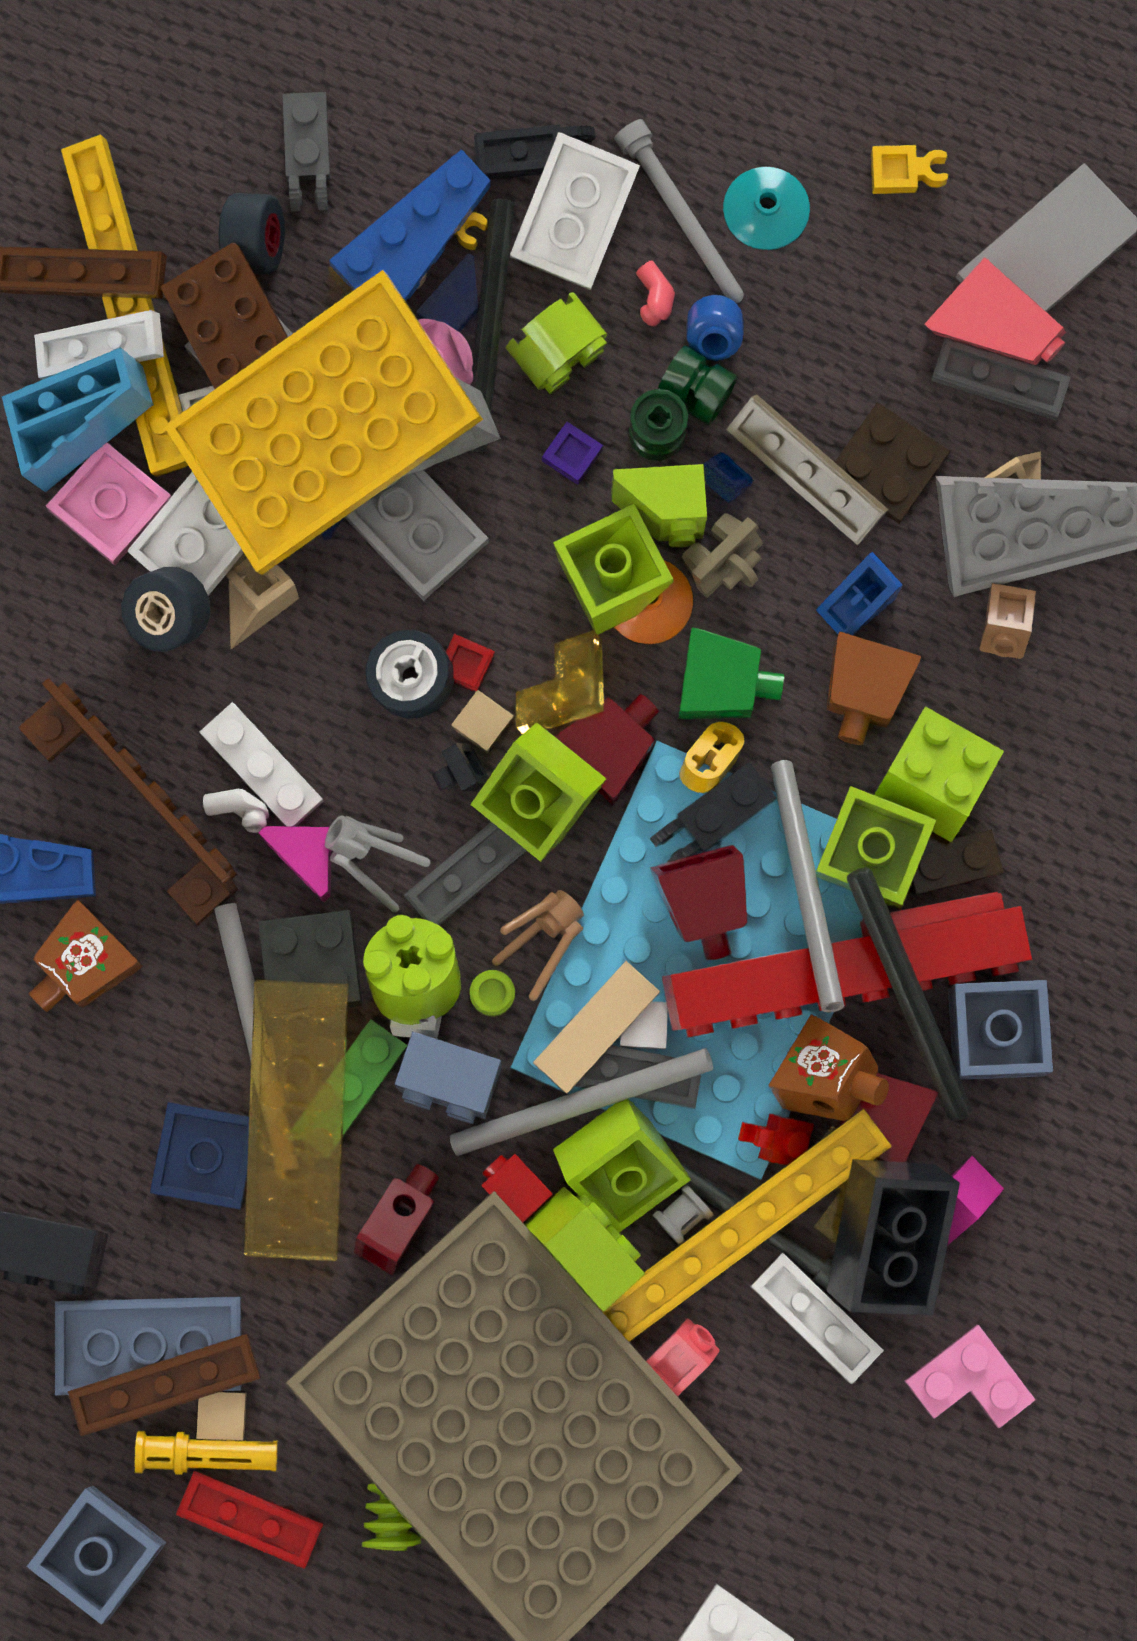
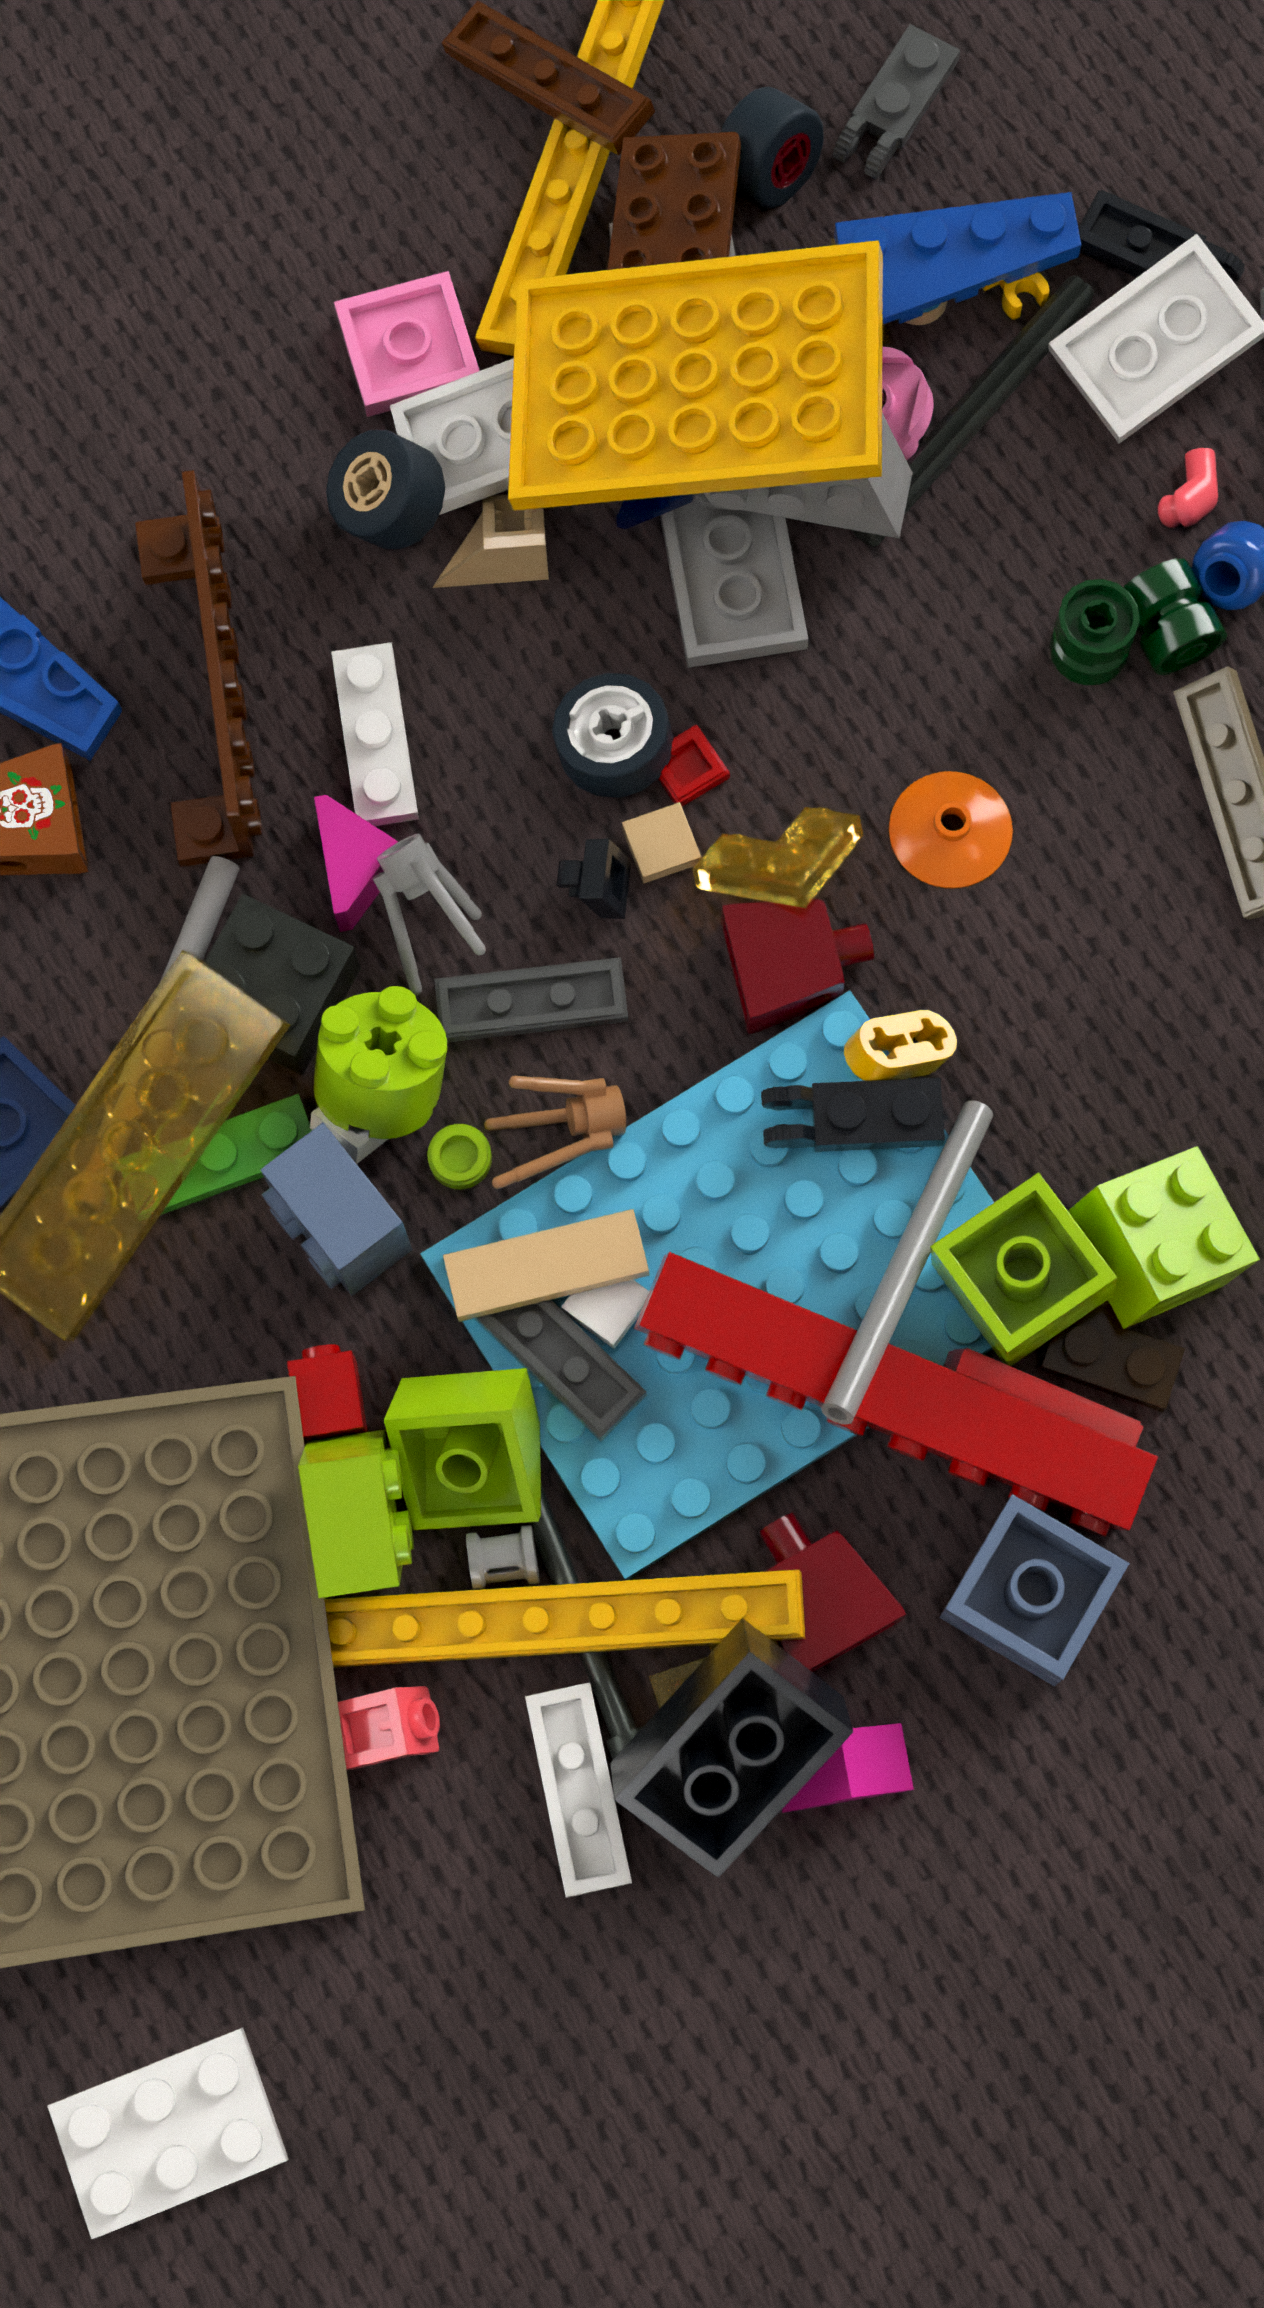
camera: 40 degrees right, 5 degrees down
(68, 347) = (513, 164): white plate -> none
(74, 414) = (431, 217): dark azure wedge -> none
(241, 803) = (322, 758): white arm -> none
(388, 1235) = (141, 1352): dark red torso -> none
(455, 298) = (956, 357): clear blue tile -> none
(538, 791) = (666, 952): lime brick -> none
(557, 342) = (1037, 469): lime brick -> none
(572, 453) = (972, 607): dark purple plate -> none
(581, 1102) = (473, 1342): light grey piece -> none
(613, 568) = (928, 757): lime slope -> none
(667, 499) = (1042, 717): lime slope -> none
(705, 897) = (776, 1197): dark red torso -> none
(724, 678) = (976, 967): green torso -> none
(726, 477) = (1134, 741): clear blue tile -> none
(730, 560) = (1075, 835): dark tan hips -> none
(780, 1140) = (677, 1543): red plate -> none
(827, 1073) = (783, 1500): dark orange torso -> none
(860, 596) = (1206, 976): blue slope -> none
(866, 684) = (1146, 1082): dark orange torso -> none
(909, 993) = (946, 1468): pearl dark grey axle -> none
(973, 1367) = (728, 1977): bright pink plate -> none

